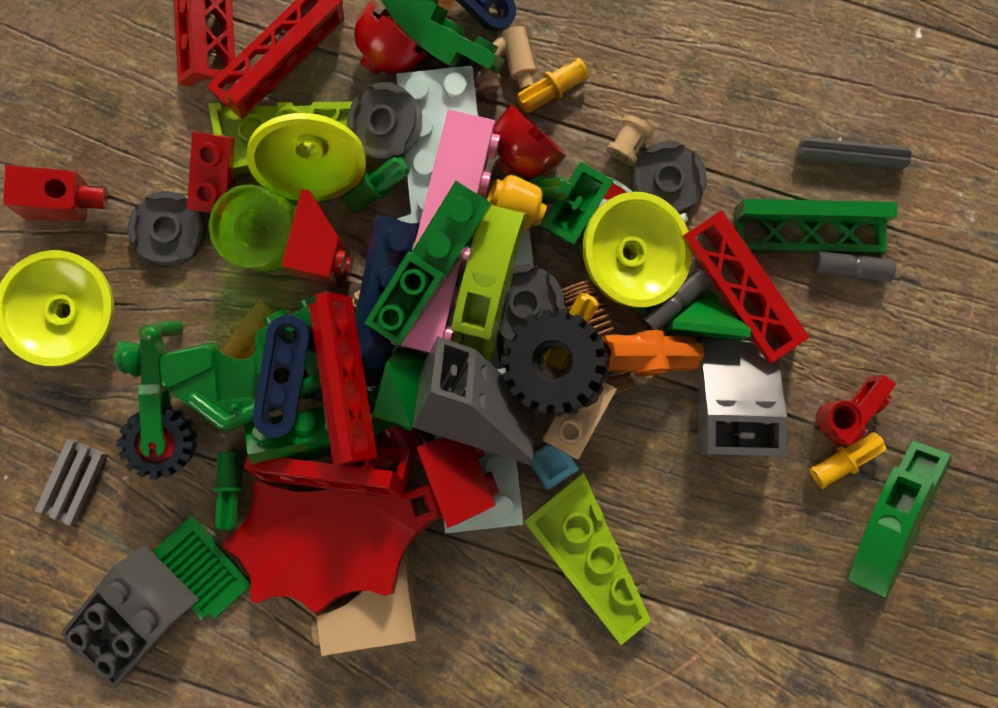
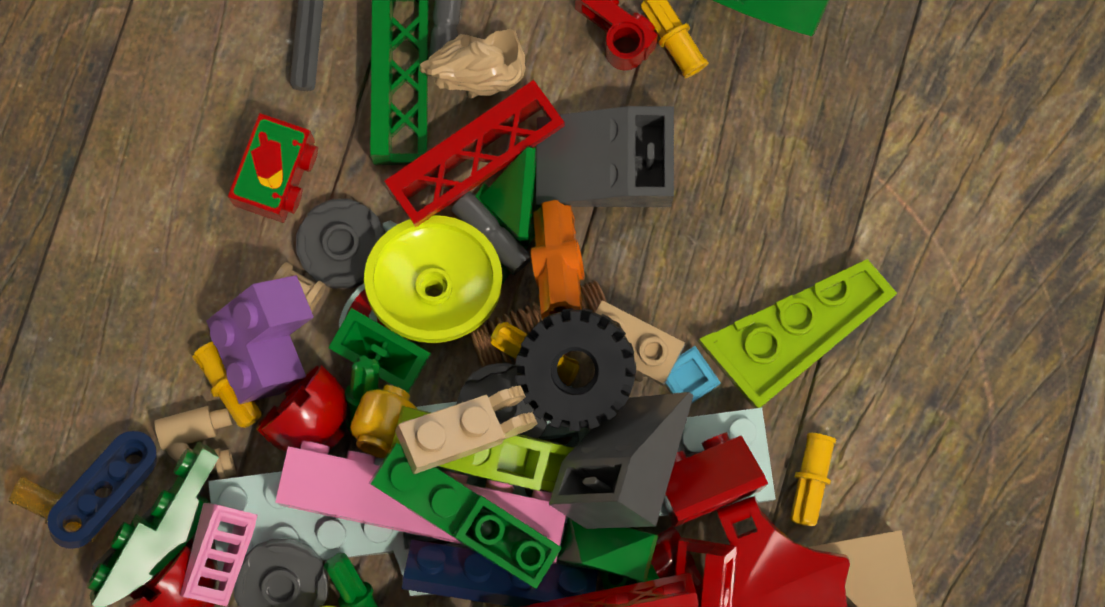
camera: 85 degrees left, 5 degrees down
(440, 70) = (201, 550): none -> bright pink slope
(464, 565) = (812, 479): none -> yellow axle
(501, 259) = (461, 430): none -> tan hinge
(589, 104) = (256, 338): none -> medium lavender brick
(732, 121) = (273, 168): none -> brick
(822, 291) = (478, 64): none -> tan hair

